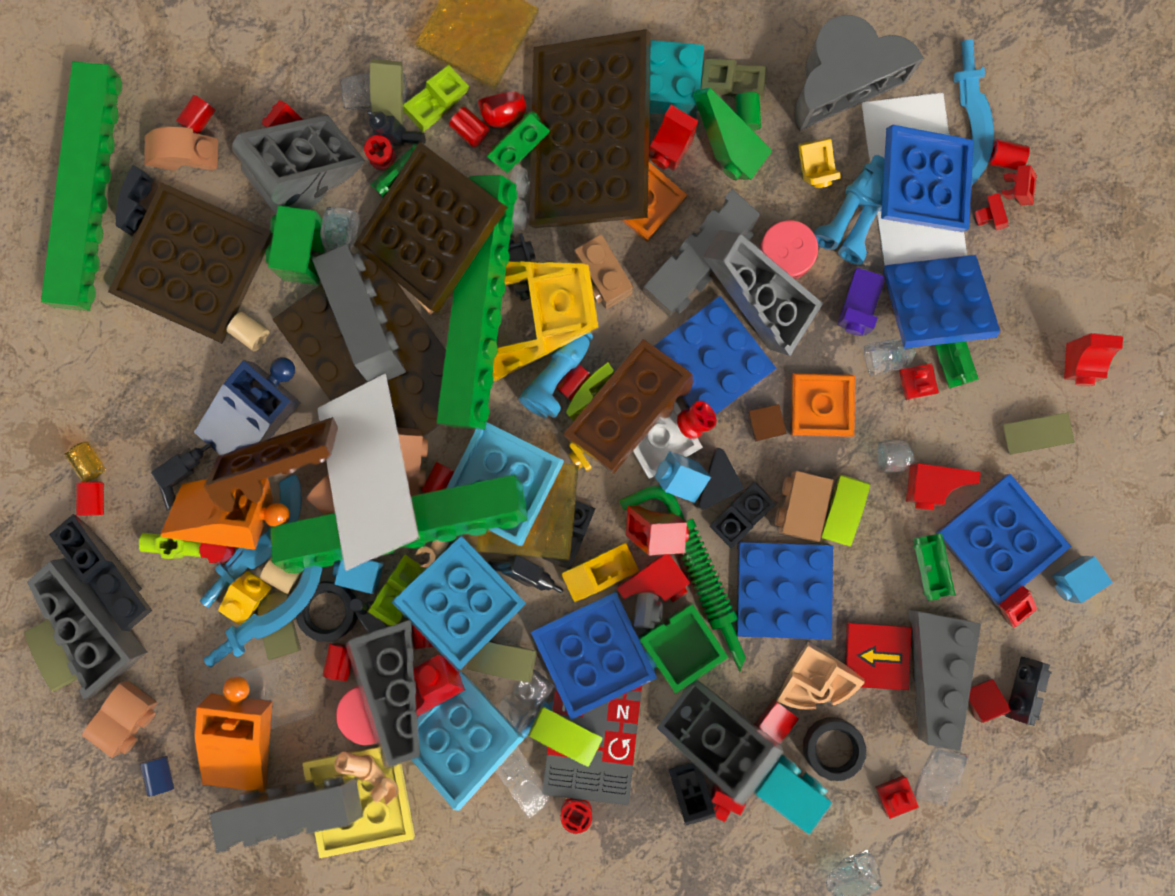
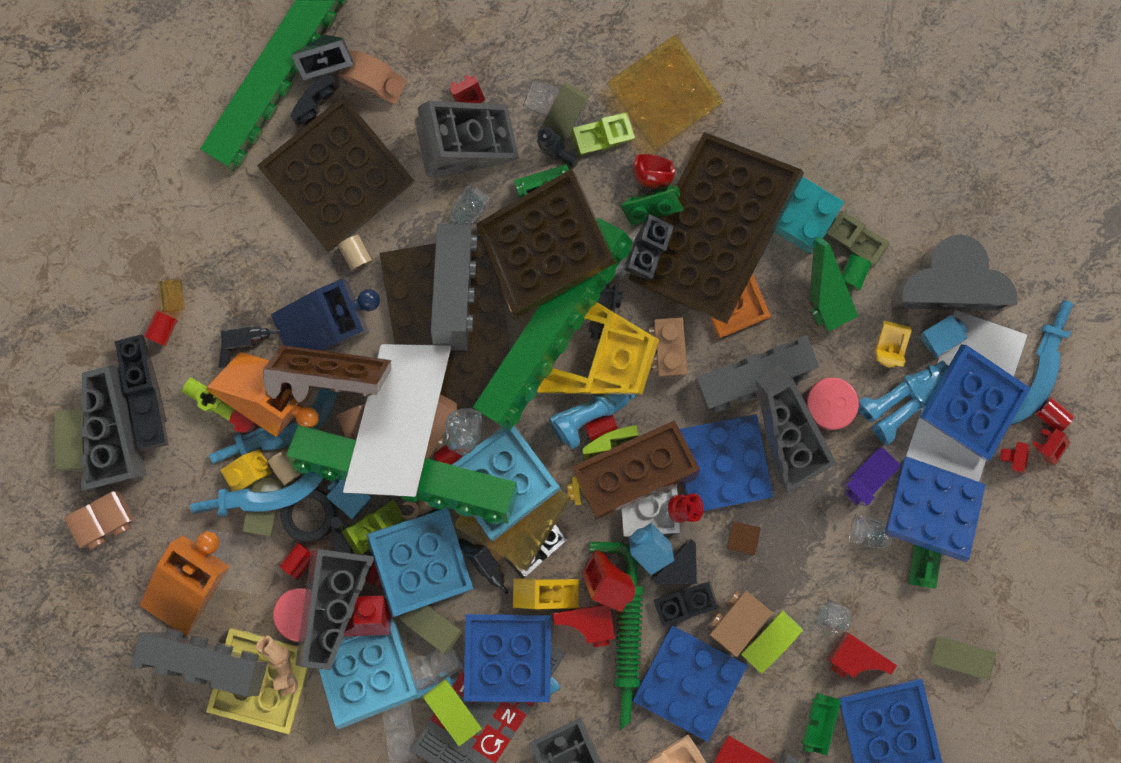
camera: 20 degrees right, 0 degrees up
(119, 152) = (322, 57): none -> black slope
(157, 776) = (107, 580): dark blue piece -> none
(195, 114) = (398, 52): red piece -> none
(294, 237) = (430, 200): green piece -> none
(384, 145) = (526, 156): red bush -> none
(438, 451) = (463, 430): none -> clear rock
(469, 127) = (618, 172): red piece -> none
(533, 182) = (647, 247): none -> black slope
(647, 611) = (568, 644): dark grey slope -> none
(672, 139) = (780, 266): red arch -> none
(683, 647) = (583, 688): green piece -> none
(823, 405) = (797, 546): orange tile -> none
(864, 130) = (944, 336): none -> dark azure brick
(918, 381) = (885, 566): red tile -> none
(1090, 358) = (1035, 617): red arch -> none

